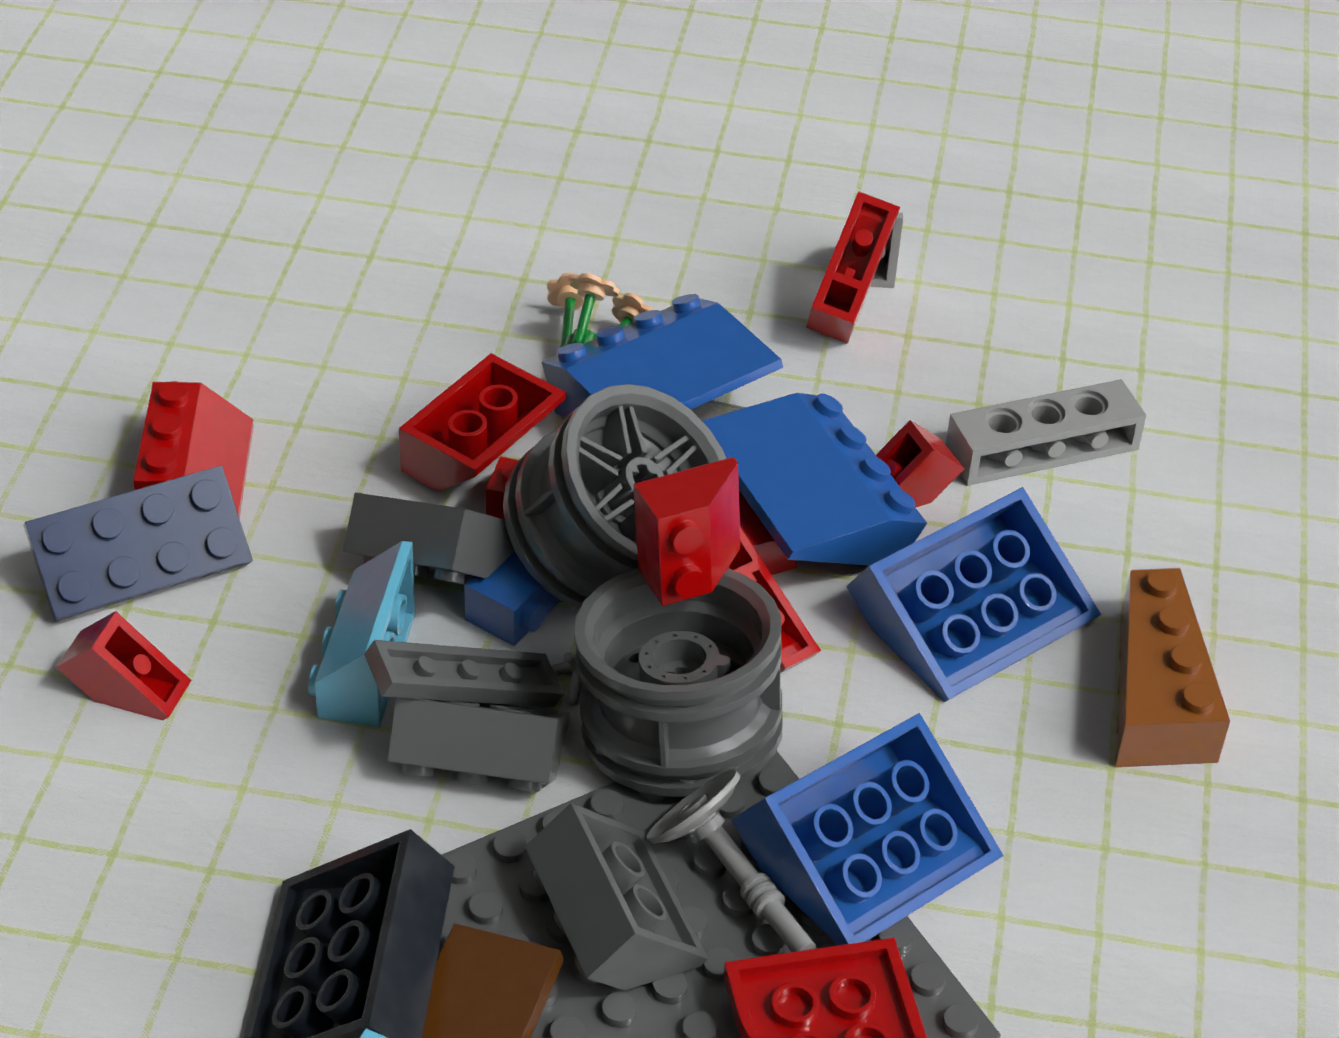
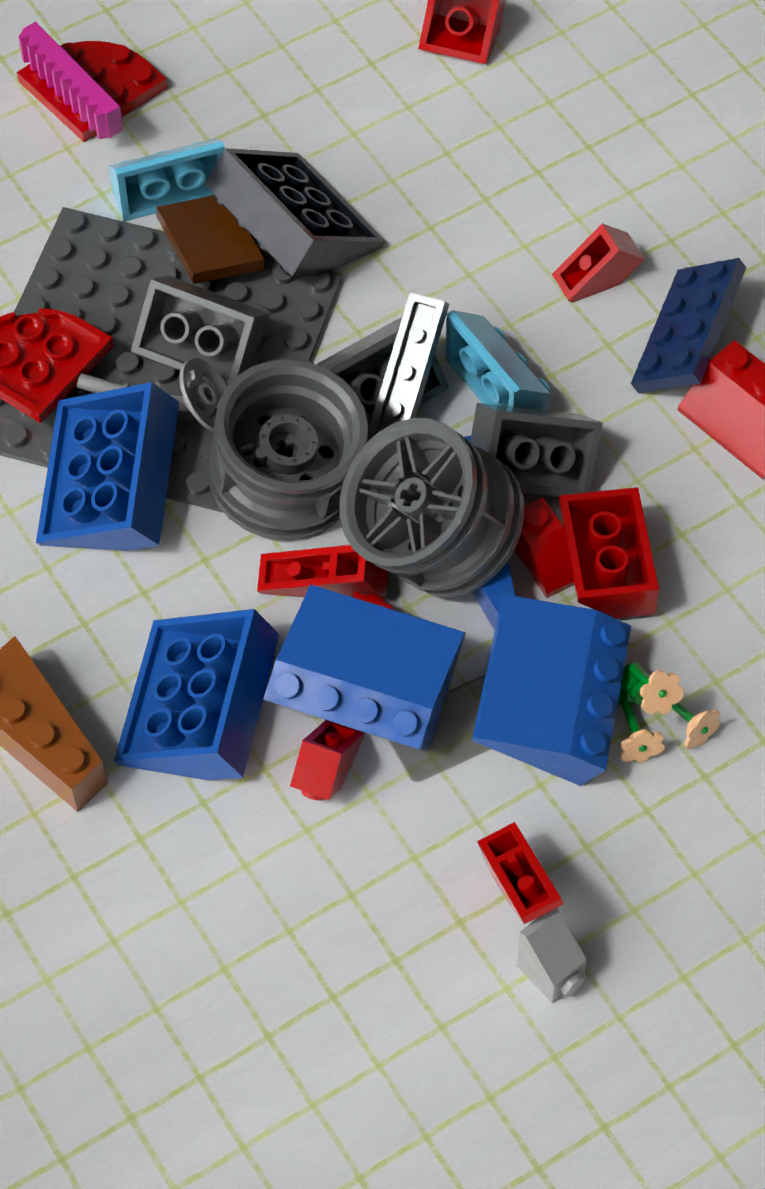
camera: 140 degrees right, 15 degrees up
(687, 529) = (328, 443): red slope -> none
(1045, 431) = (295, 822): light grey brick -> none

